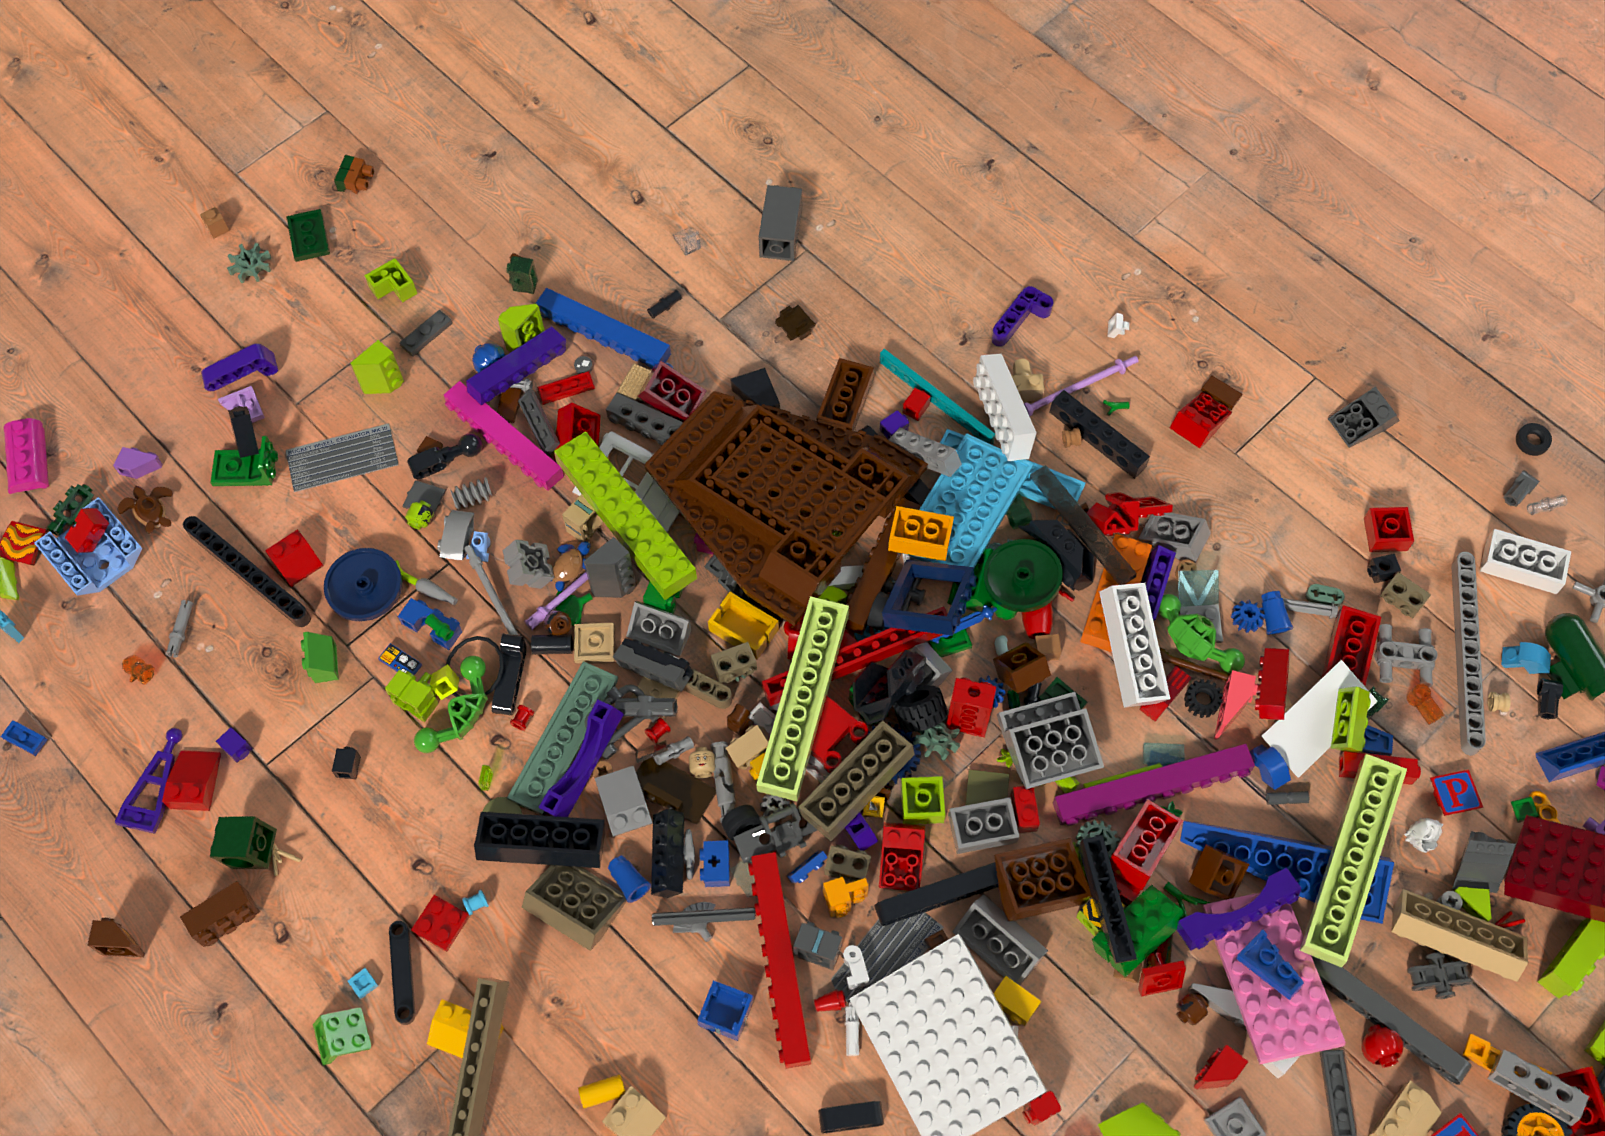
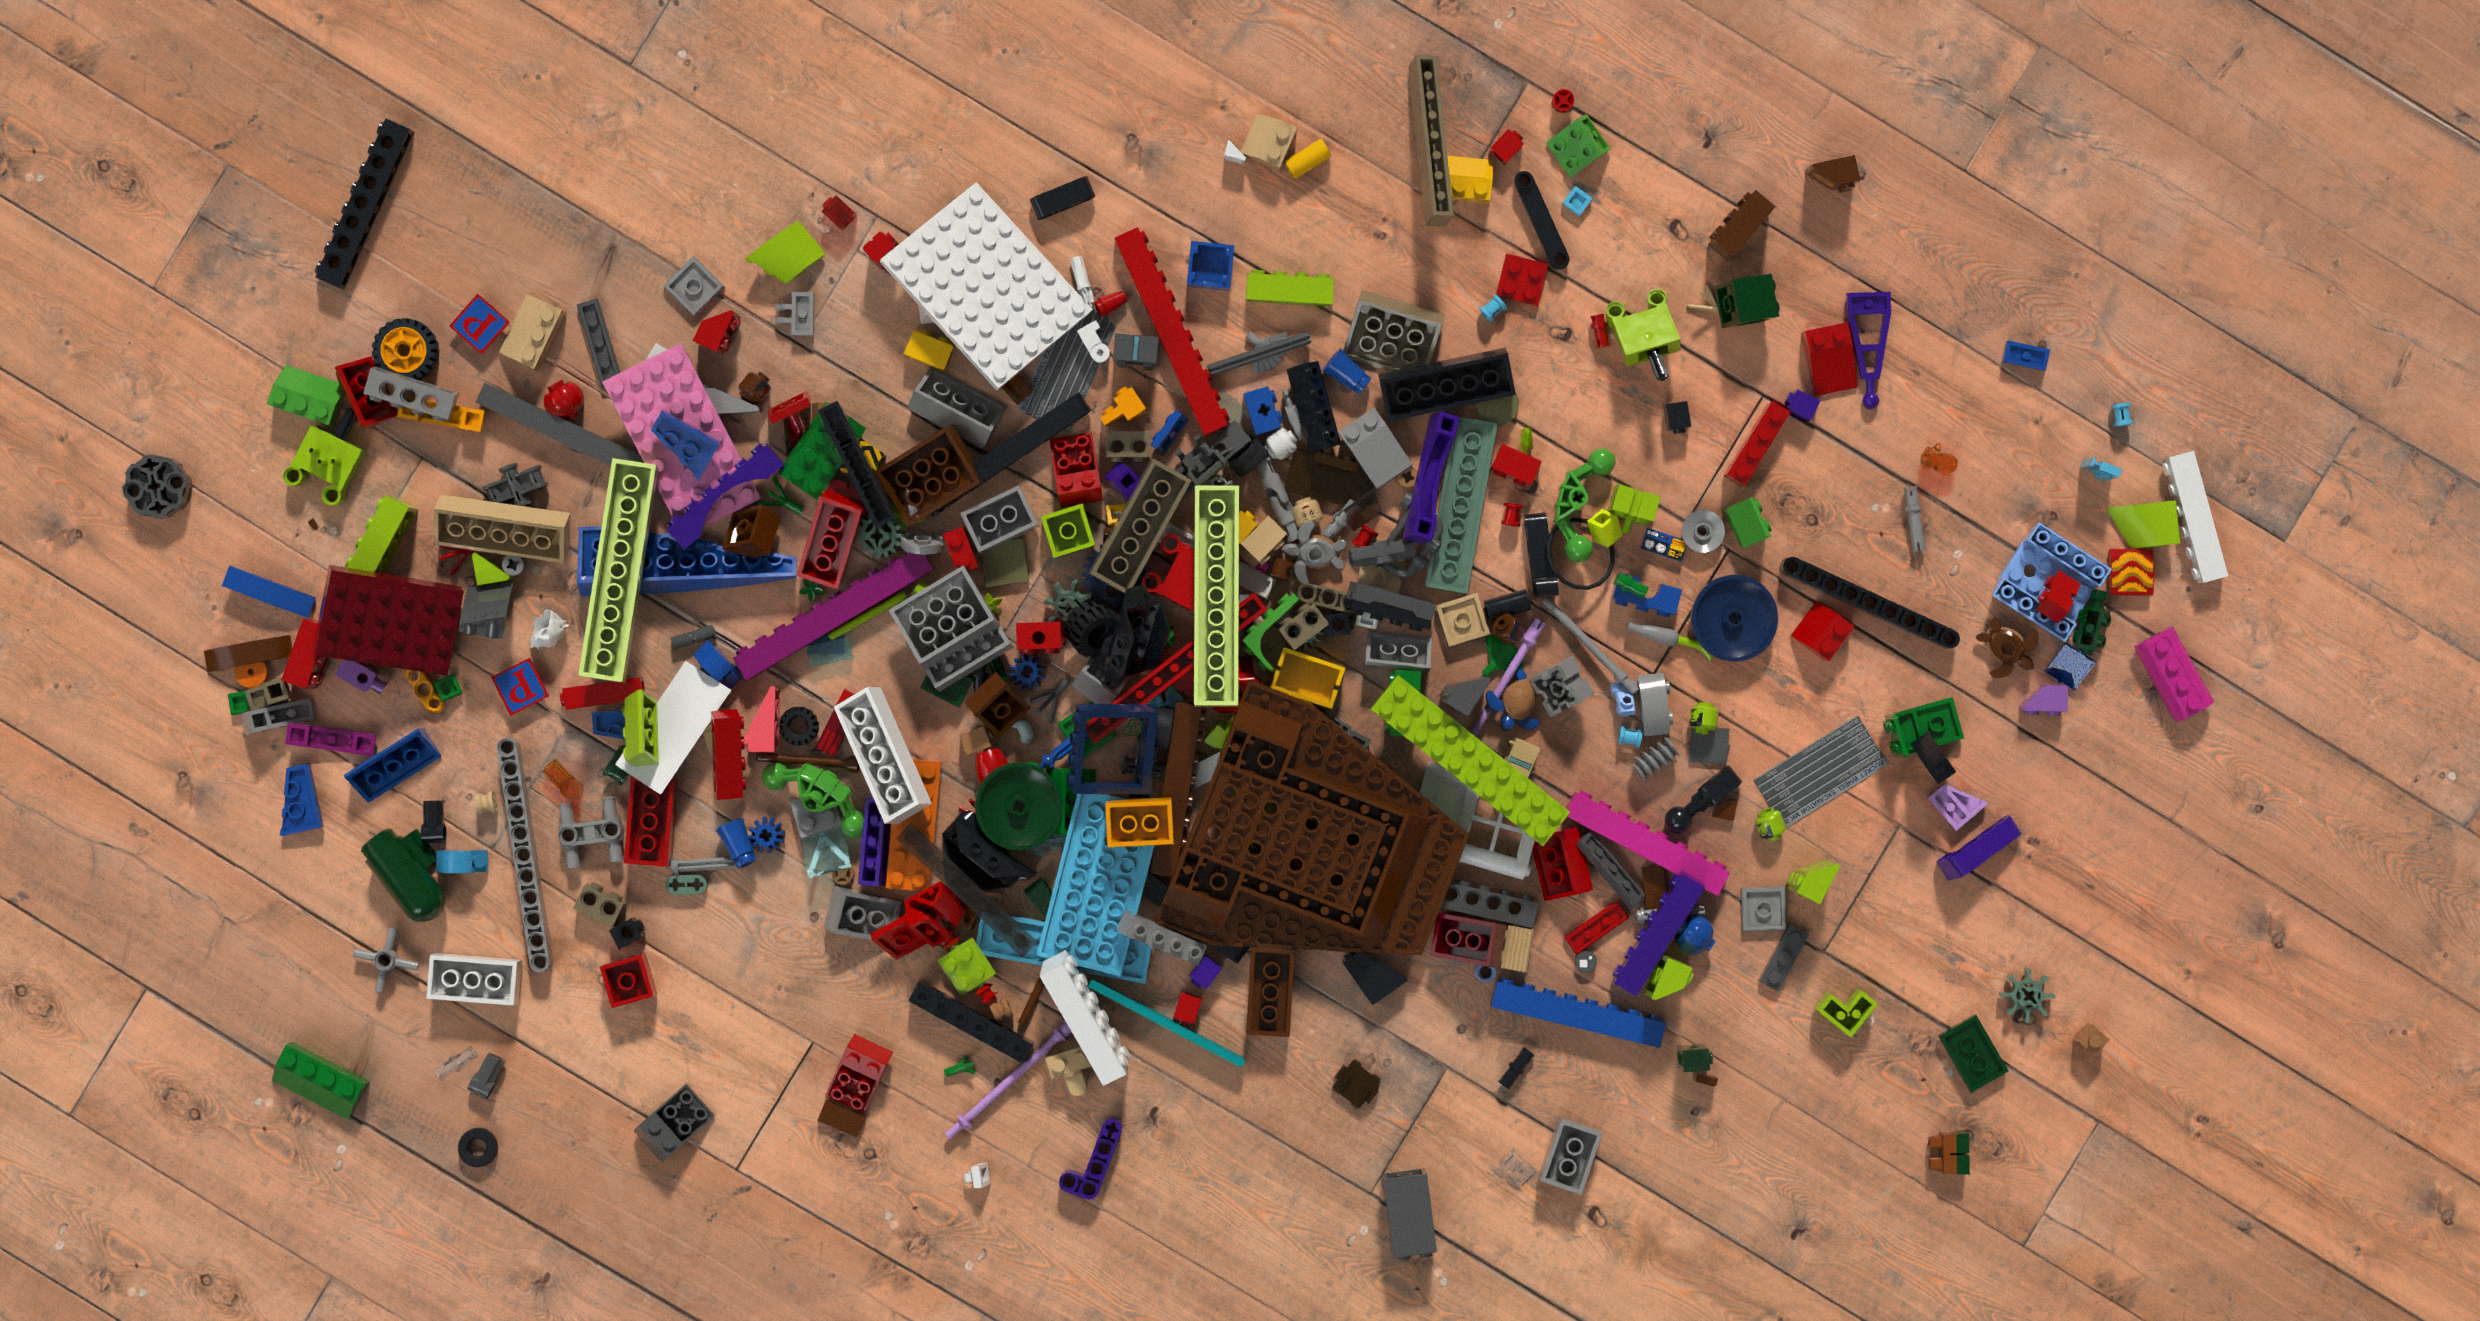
camera: 170 degrees right, 25 degrees up
(105, 482) = (2070, 666): none -> clear blue piece
(286, 722) = (1757, 443): none -> red brick
(336, 1079) = (1565, 97): none -> red wheel
(344, 836) = (1646, 333): none -> lime piece
(356, 656) = (1714, 531): none -> light grey dish
(385, 860) = (1600, 332): none -> red pin
(397, 425) = (1770, 824): none -> lime head
(408, 1051) = (1507, 146): none -> red brick
(427, 370) = (1763, 908): none -> light grey tile
(486, 517) = (1629, 736): none -> medium azure bush
(503, 757) = (1515, 465): none -> red brick
(643, 234) = (1570, 1155): none -> light grey brick
(657, 968) = (1290, 289): none -> lime brick
(673, 1116) = (1234, 154): none -> white slope
(699, 657) = (1348, 625): none -> black brick
(706, 728) = (1313, 552): none -> light grey animal
(707, 829) = (1281, 443): none -> white head
(750, 684) = (1255, 632): none -> bright green bracket
(972, 662) = (1051, 696): none -> dark grey plant
(1042, 442) = (1031, 1002): none -> reddish brown piece
(1060, 822) = (921, 543): none -> light grey tile
(1092, 473) = (967, 967): none -> lime plate
(1132, 1069) = (802, 314): none -> light grey hinge

